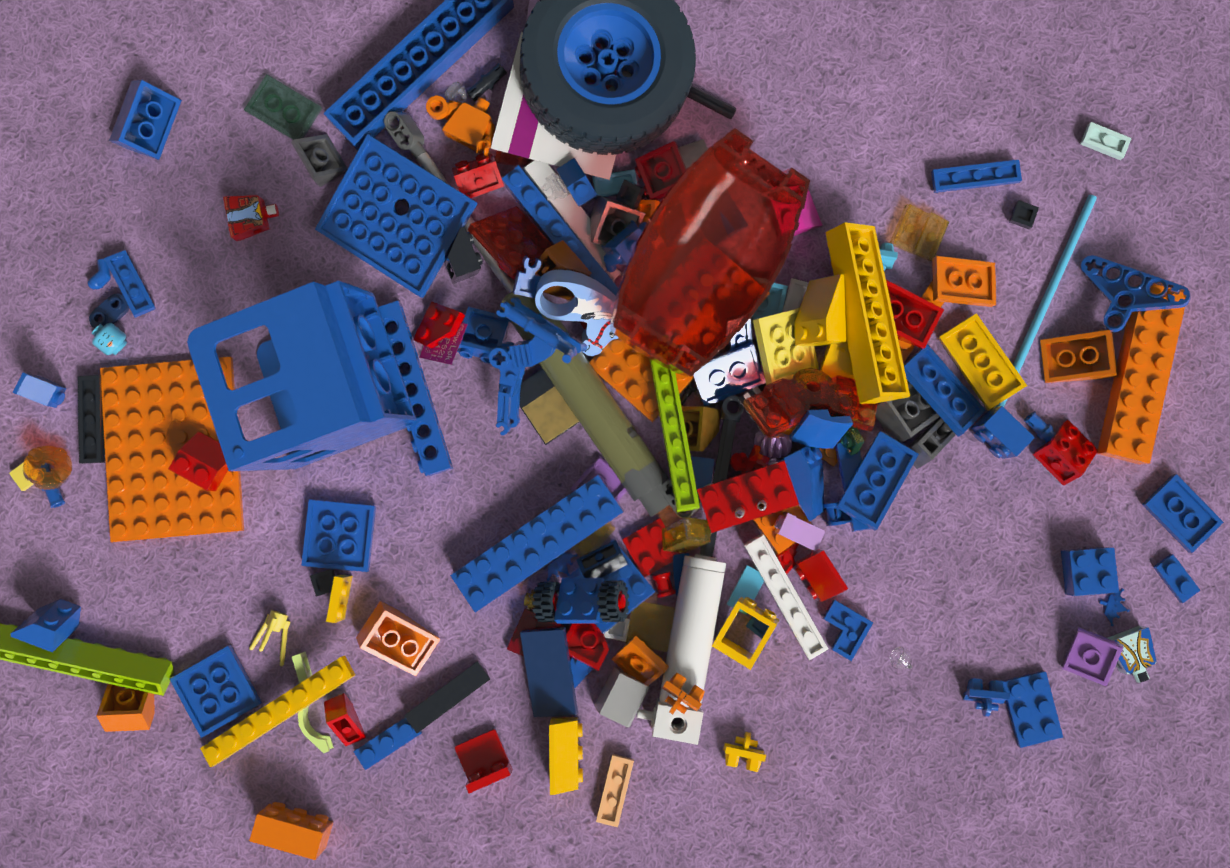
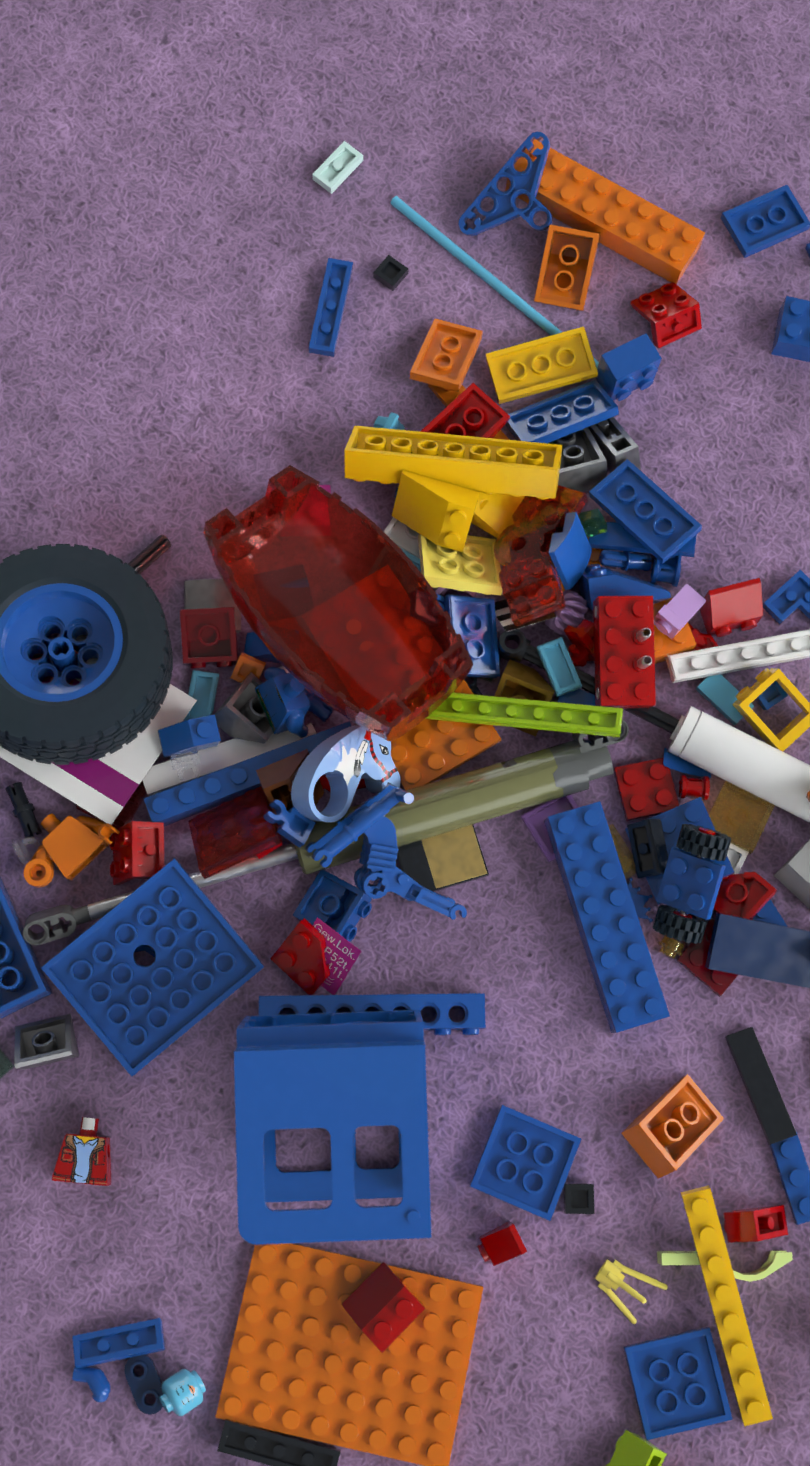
camera: 80 degrees left, 10 degrees down
(273, 535) = (501, 1244): none -> red slope
(339, 598) = (597, 1173): yellow plate -> none
(462, 259) = (234, 898): black slope -> none
(630, 194) = (222, 681): black plate -> none
(640, 661) = (778, 839): orange plate -> none
(686, 535) = (646, 740): clear yellow brick -> none
(723, 449) = (559, 667): none -> medium azure tile
(833, 477) = (625, 560): none -> blue axle
(919, 232) = (373, 385): clear yellow slope -> none
(1043, 430) = (635, 328): blue pin -> none

